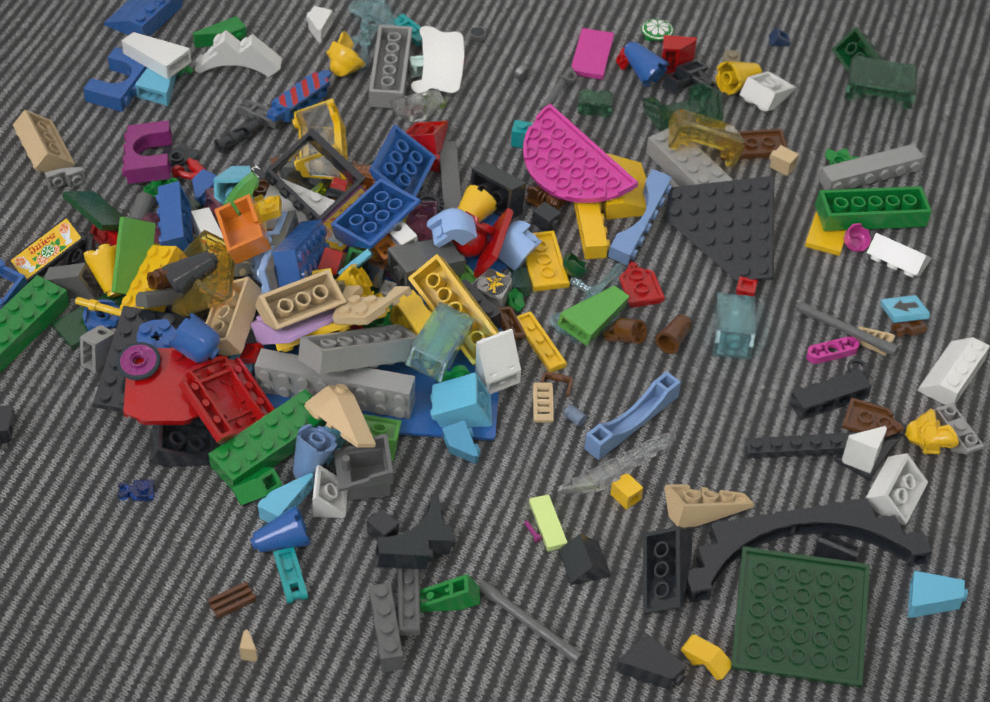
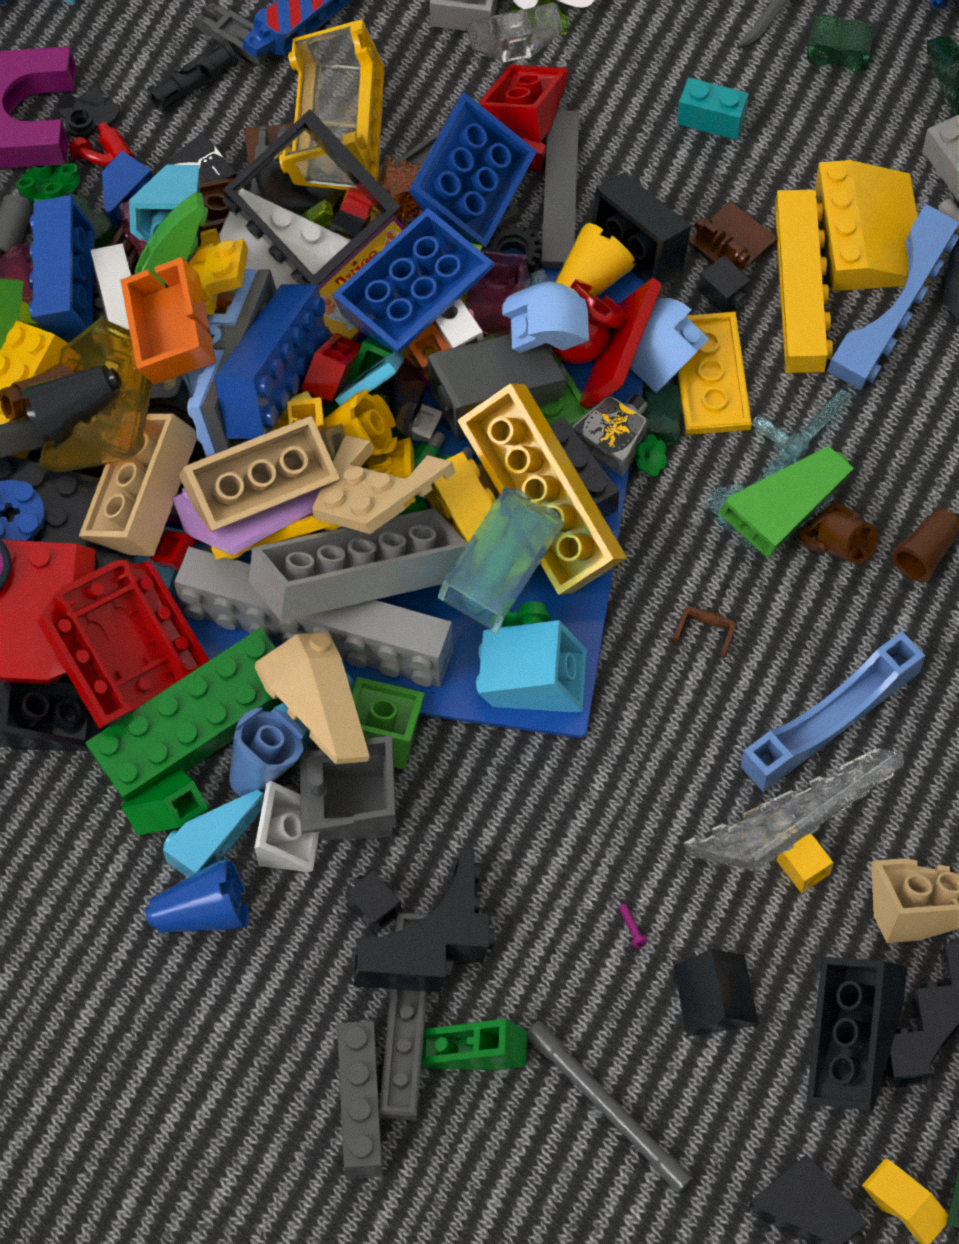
camera: 10 degrees right, 15 degrees up
(196, 340) = (73, 537): blue cylinder -> none
(230, 597) = (100, 1009): reddish brown tile -> none
(247, 647) = (123, 1118): tan slope -> none
(290, 574) = (208, 980): teal plate -> none
(460, 443) = (521, 742): dark azure slope -> none
(498, 361) = (601, 596): white slope -> none
(511, 320) = (630, 504): reddish brown tile -> none
(541, 343) = (686, 542): yellow tile -> none
(543, 390) = (677, 648): tan slope -> none
(547, 522) = (660, 911): yellowish green tile -> none
(570, 163) = (777, 180): dark pink plate -> none
(574, 266) = (764, 392): dark green hair -> none
(575, 415) = (731, 699): sand blue piece -> none
(641, 286) = (878, 438): red tile -> none

